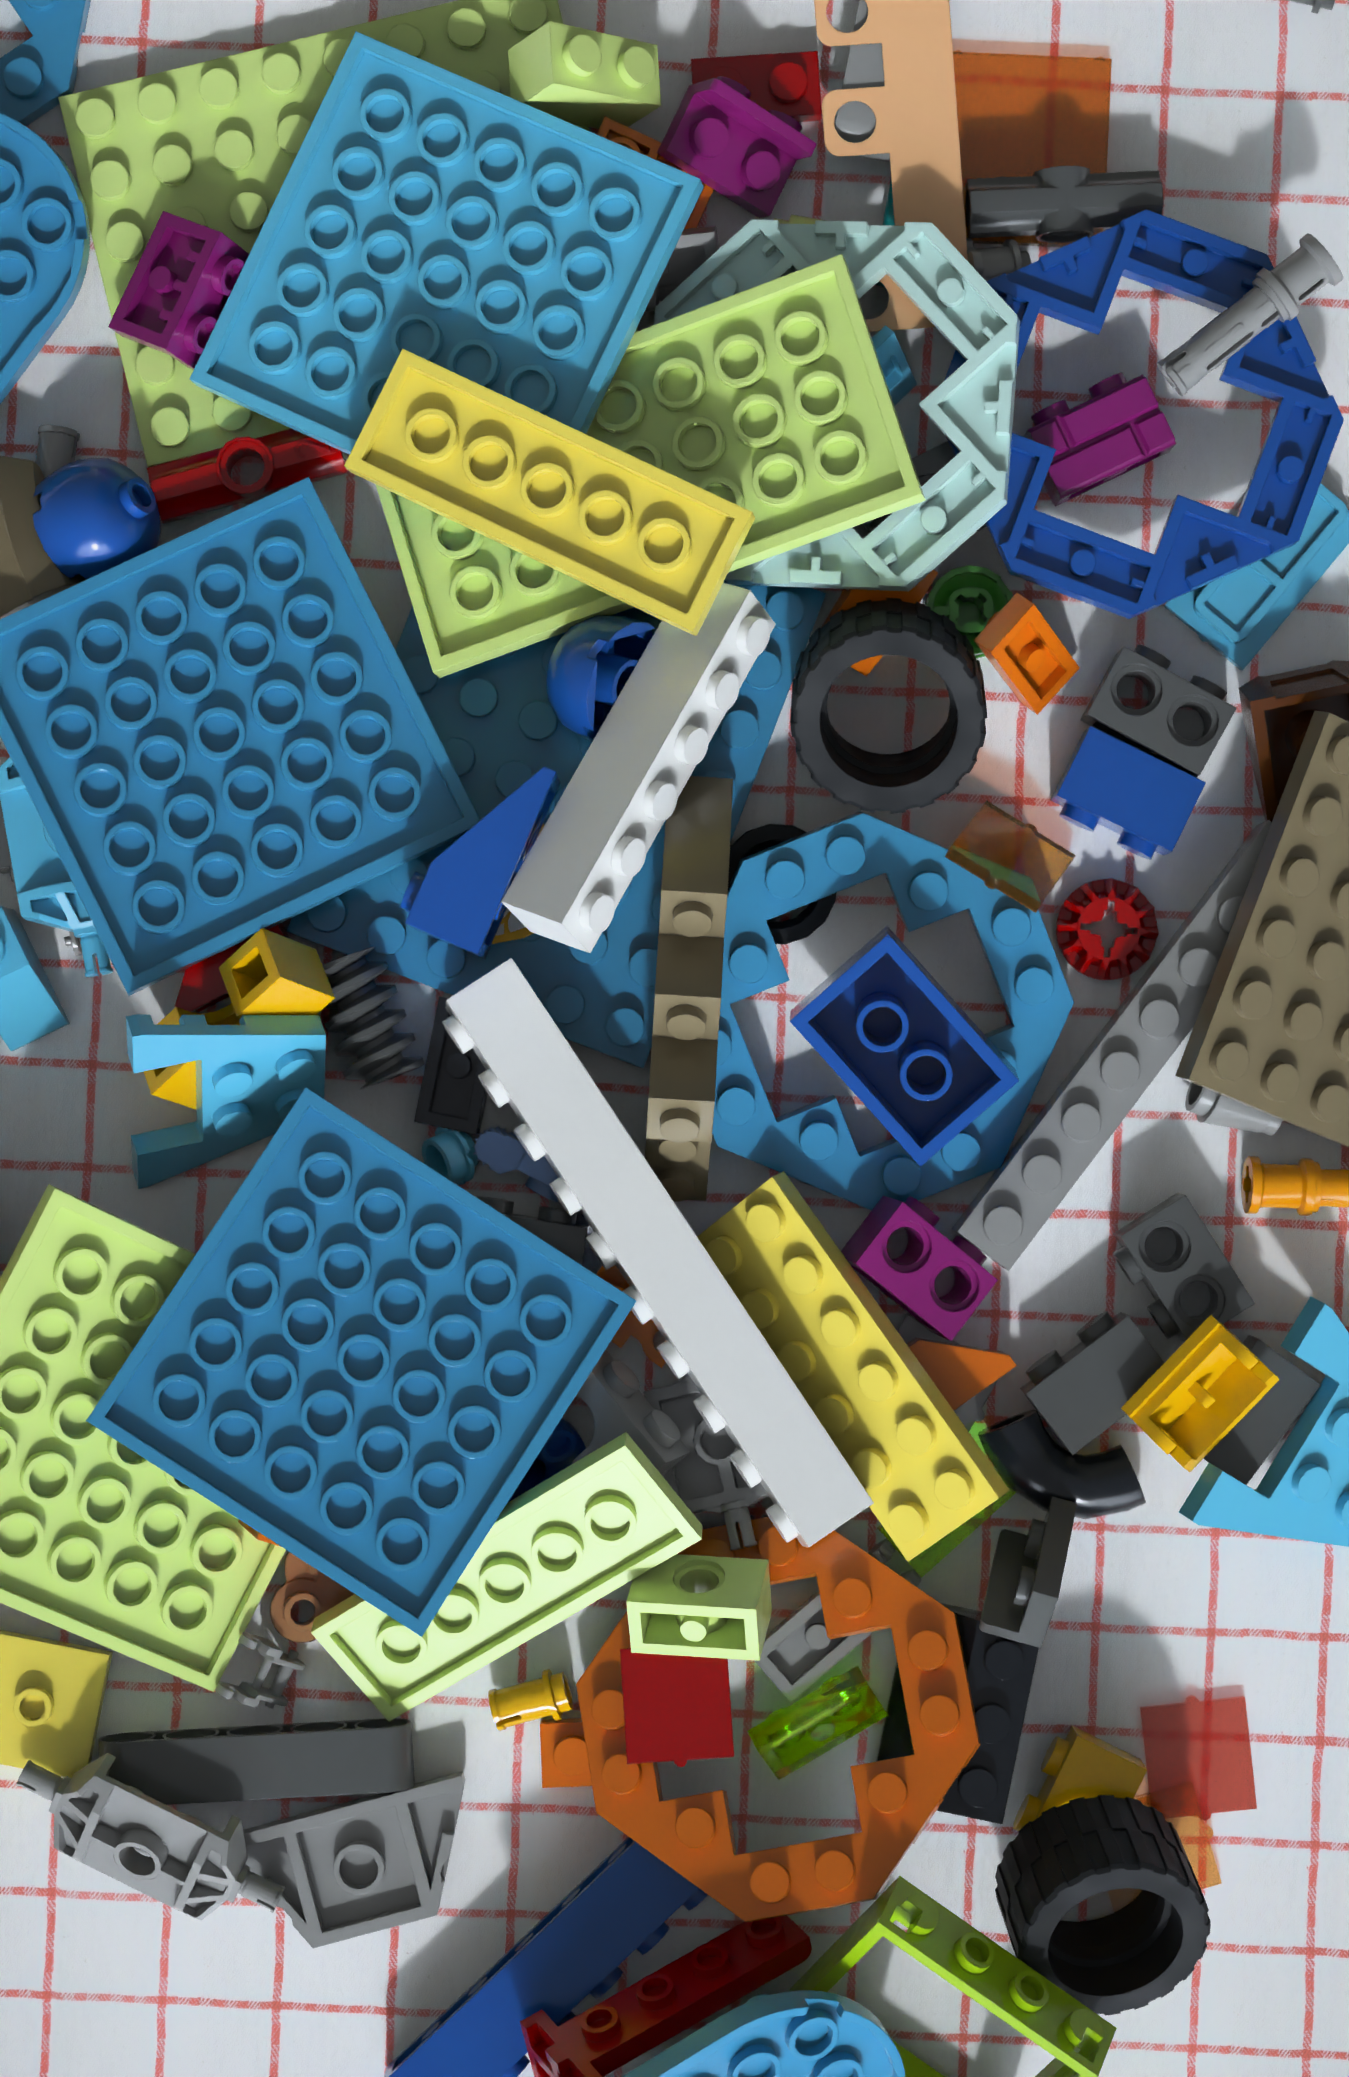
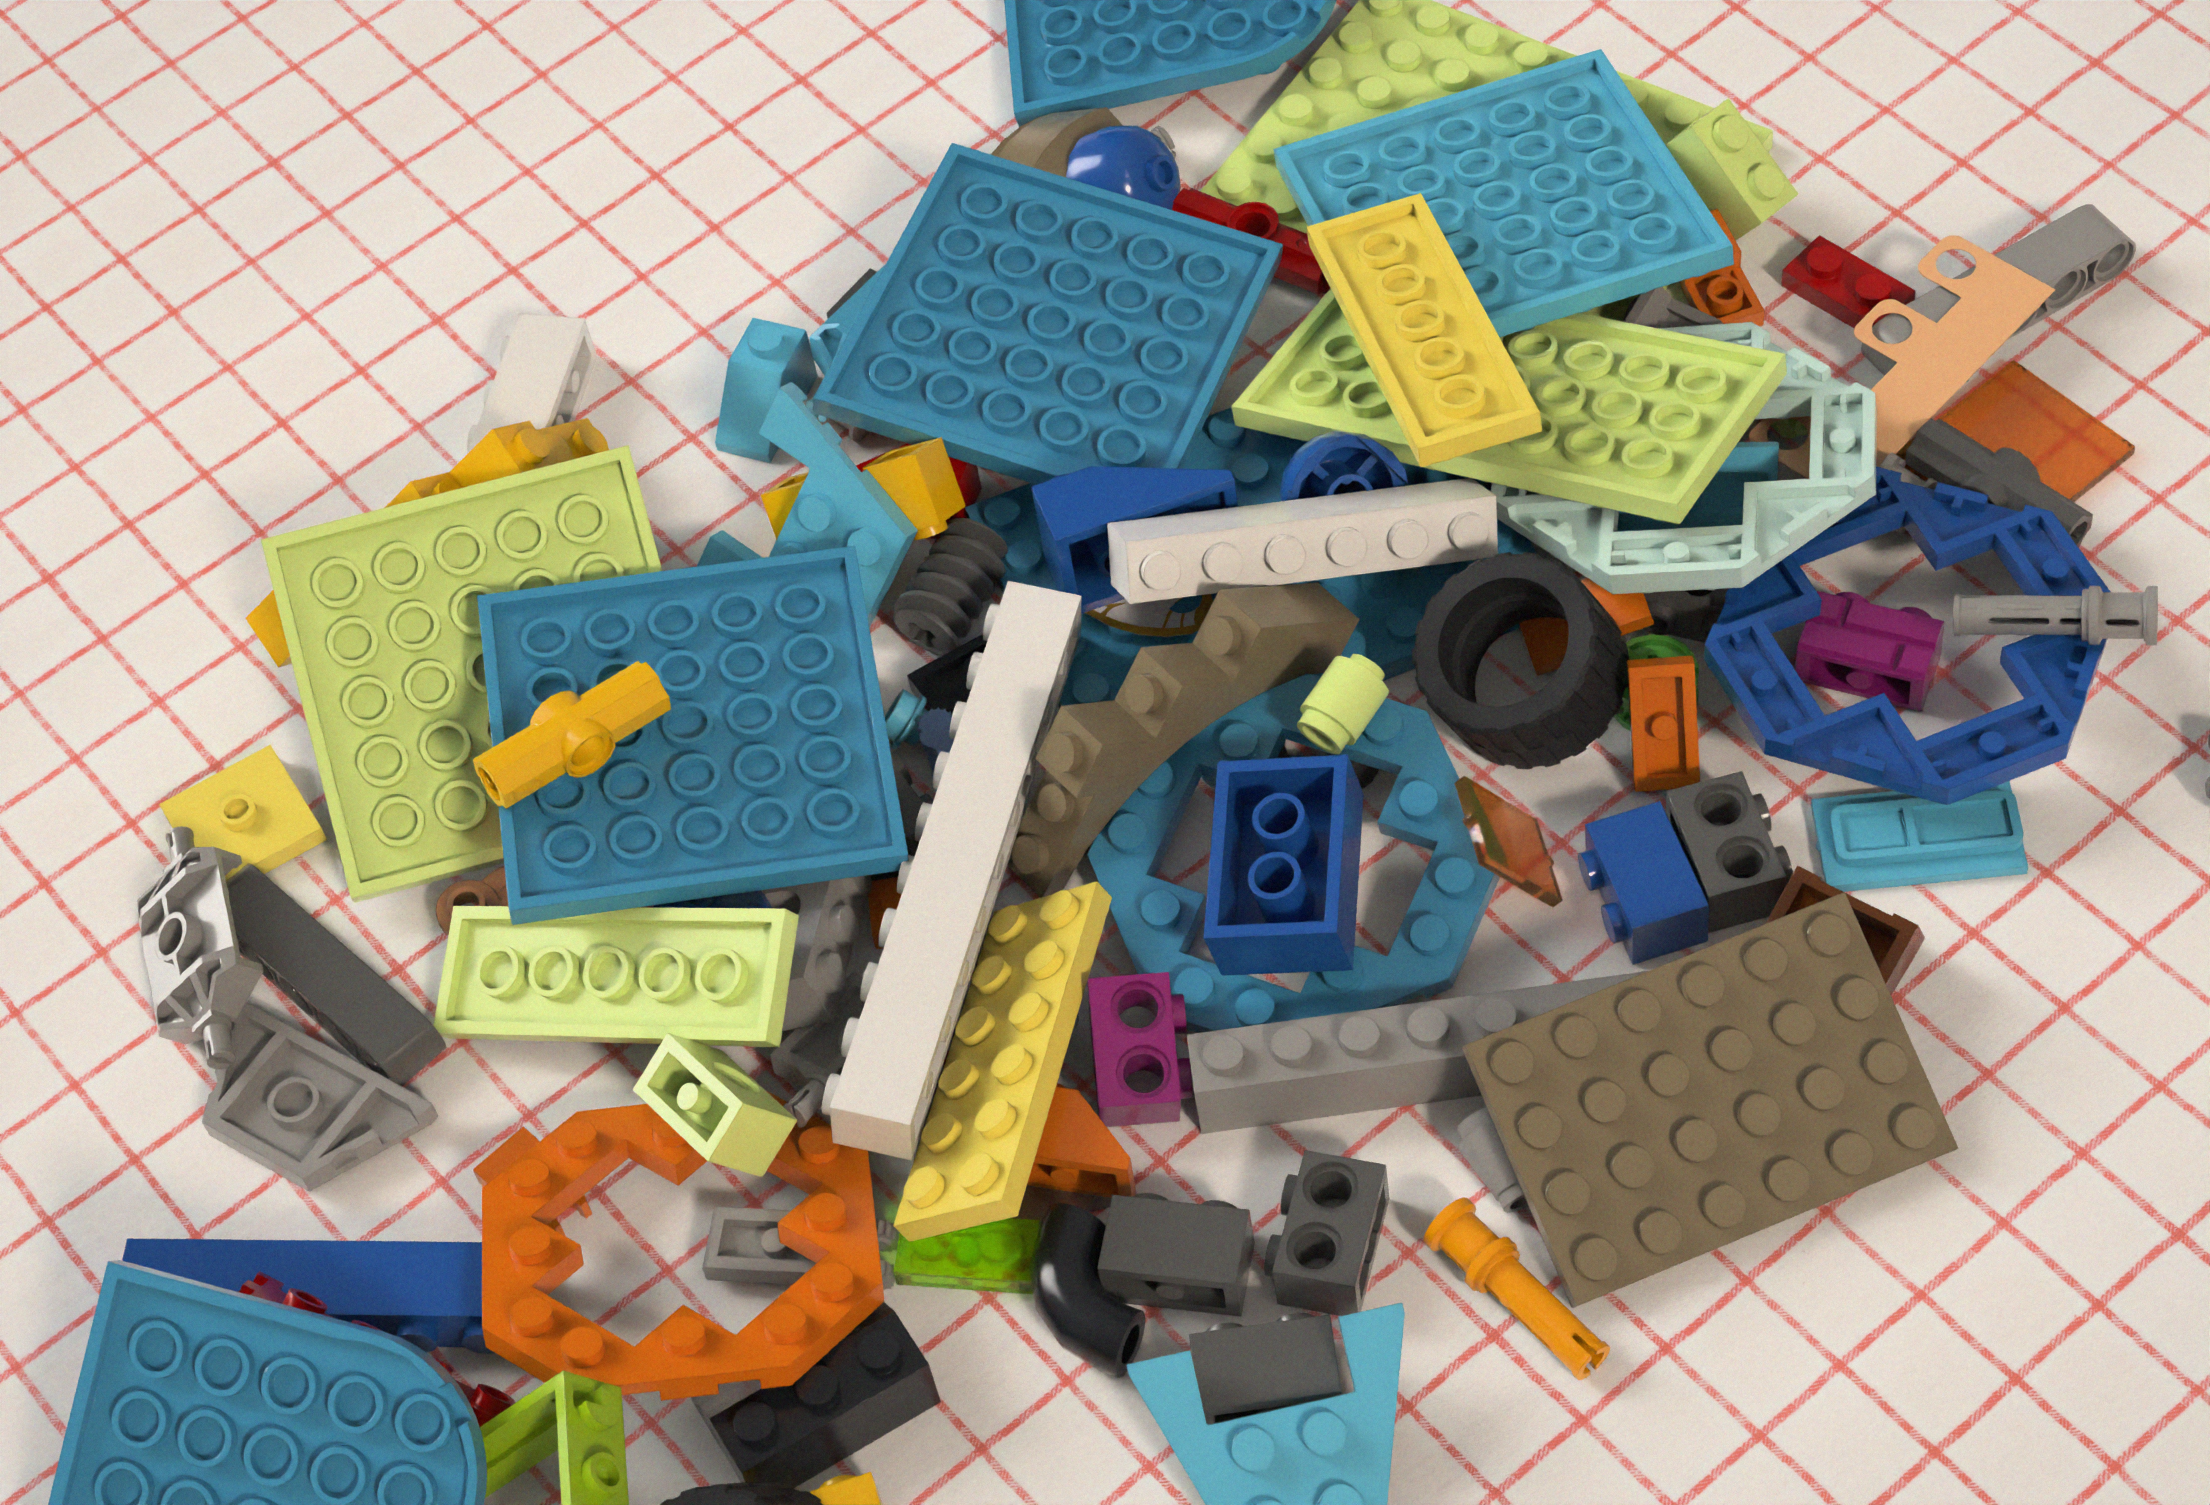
camera: 60 degrees right, 35 degrees down
(179, 288) = (1325, 101): magenta bracket -> none
(251, 1694) = (401, 946): light grey piece -> none
(313, 1469) = (572, 734): none -> yellow piece
(531, 1700) = (534, 1104): yellow pin -> none
(675, 1708) = (622, 1164): red piece -> none
(735, 144) = (1794, 287): magenta bracket -> none
(817, 877) = (1342, 703): none -> yellowish green brick
(817, 1722) = (714, 1292): clear neon green plate -> none
(1028, 1577) = (973, 1316): dark grey bracket -> none
(1084, 949) = (1502, 965): red gear -> none
(1200, 1393) = (1238, 1294): yellow hinge -> none

